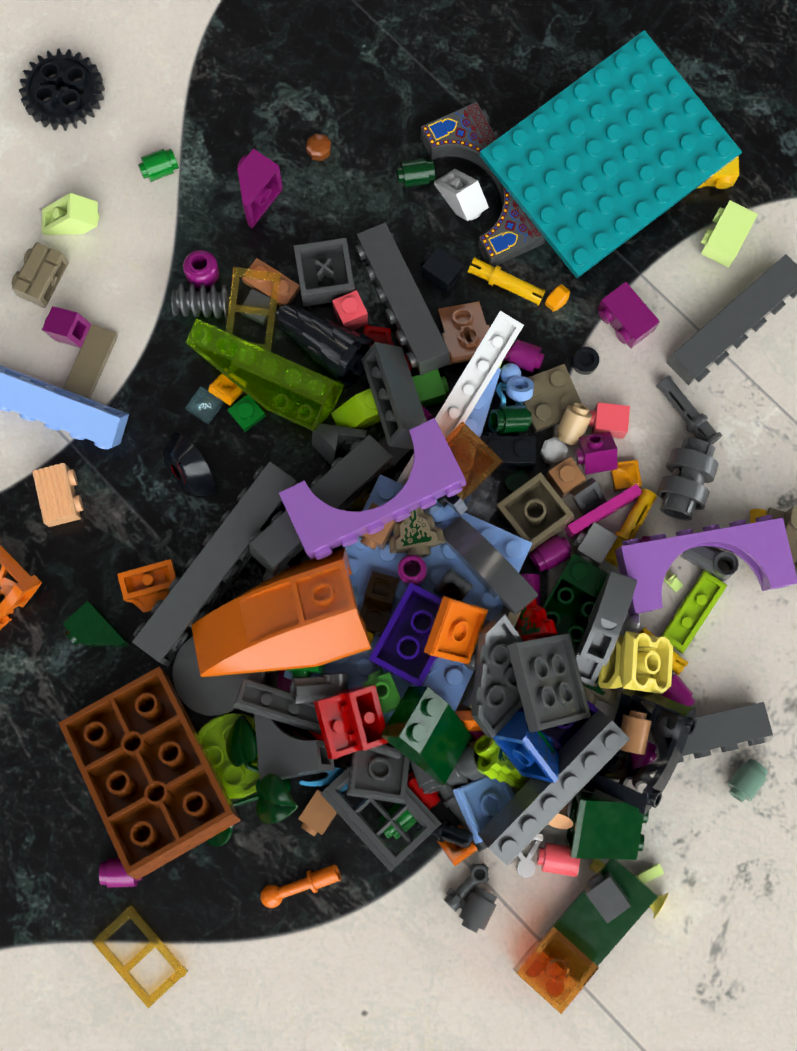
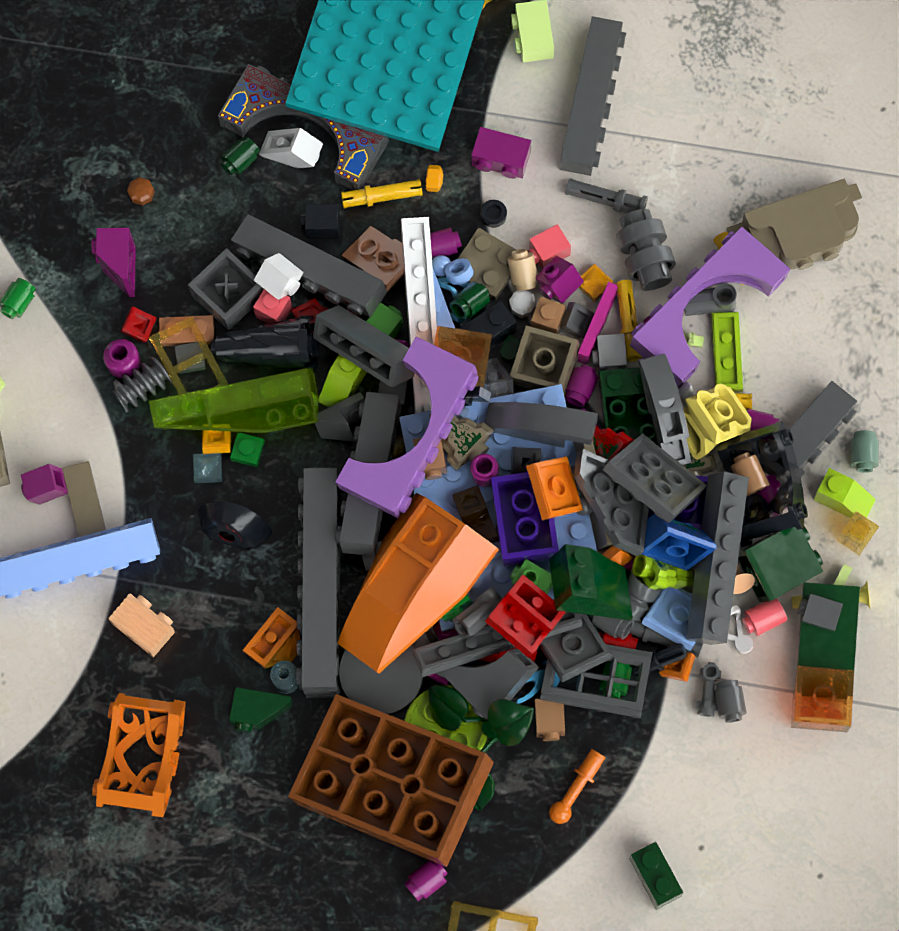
camera: 30 degrees left, 5 degrees down
(125, 616) = (284, 685): none -> clear light blue brick
(236, 251) = (138, 324): none -> red tile
(306, 1013) = (656, 875): none -> dark green brick
(369, 289) = (279, 276): none -> white brick
(690, 847) = (857, 533): none -> clear yellow brick
(702, 806) = (844, 495): none -> lime slope

